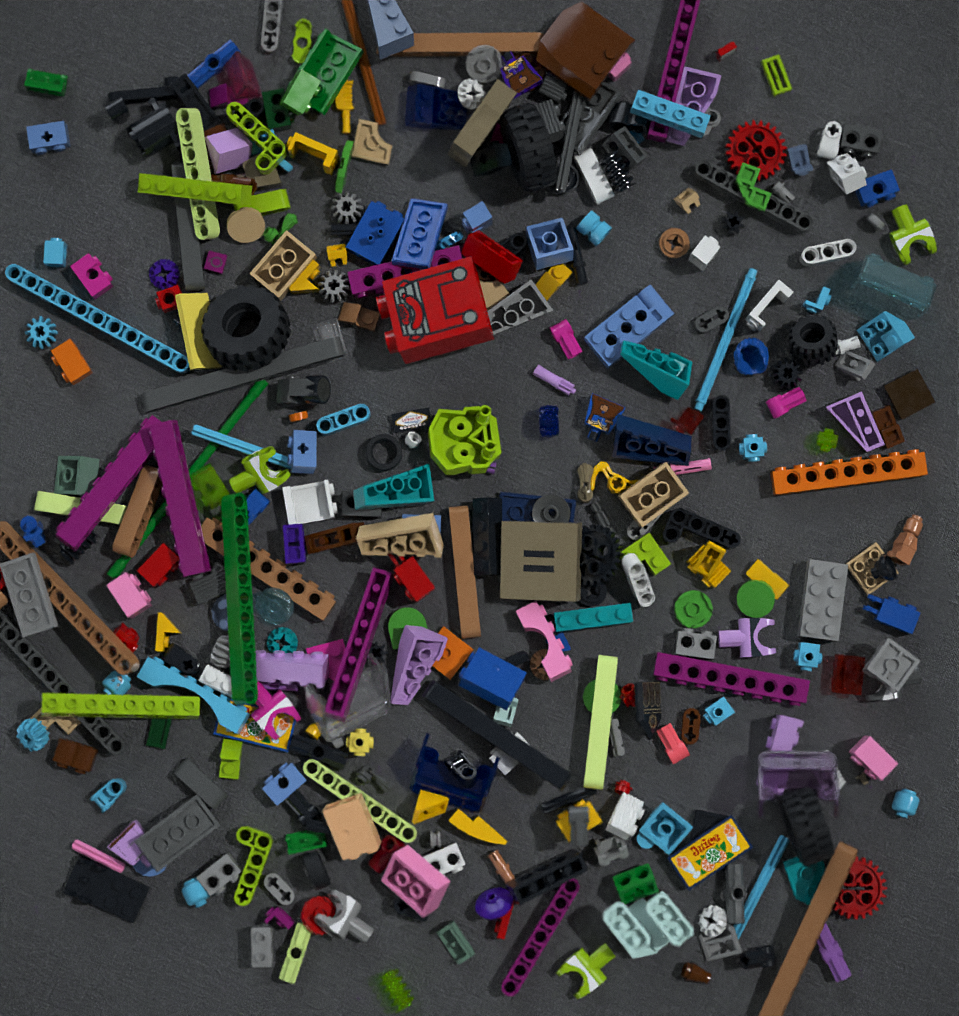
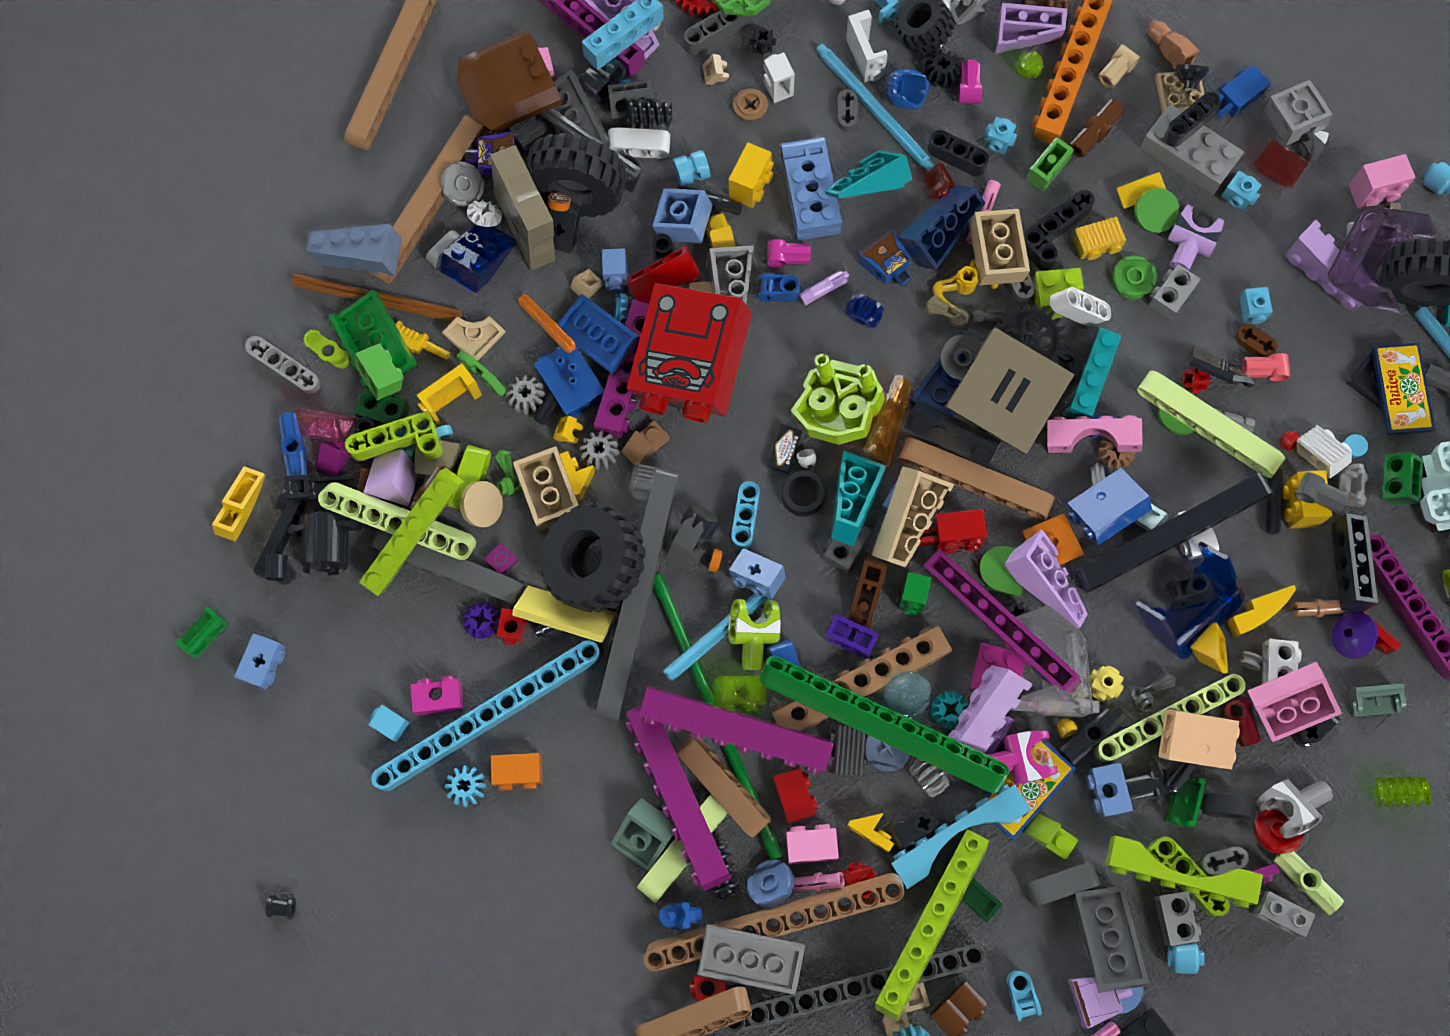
camera: 55 degrees left, 10 degrees down
(89, 581) = (770, 883): none -> medium blue tile
(105, 612) = (811, 883): none -> bright pink pin
(116, 684) = (902, 917): medium azure head -> none
(152, 50) = (238, 504): none -> yellow slope
(217, 680) = (958, 800): white brick -> none
(260, 900) = (1131, 856): none -> lime arch
(310, 502) = (814, 598): white panel -> none
(349, 572) = (914, 593): none -> green brick
(408, 191) = (546, 323): none -> orange axle
(459, 201) = (586, 283): none -> tan slope
(466, 486) = (887, 425): none -> clear orange wing
(500, 147) = (559, 202): none -> orange tile
(533, 343) = (777, 287): none -> blue piece
(610, 277) = (750, 175): none -> yellow brick
(665, 828) = (1356, 417): medium azure slope -> none
(709, 559) = (1095, 225): yellow slope -> none
(747, 498) = (1049, 164): none -> bright green brick
(799, 686) = (1272, 217): magenta brick -> none
(801, 519) = (1097, 128): none -> reddish brown piece
(845, 594) = (1198, 112): none -> black beam
(869, 509) = (1122, 61): none -> tan piece

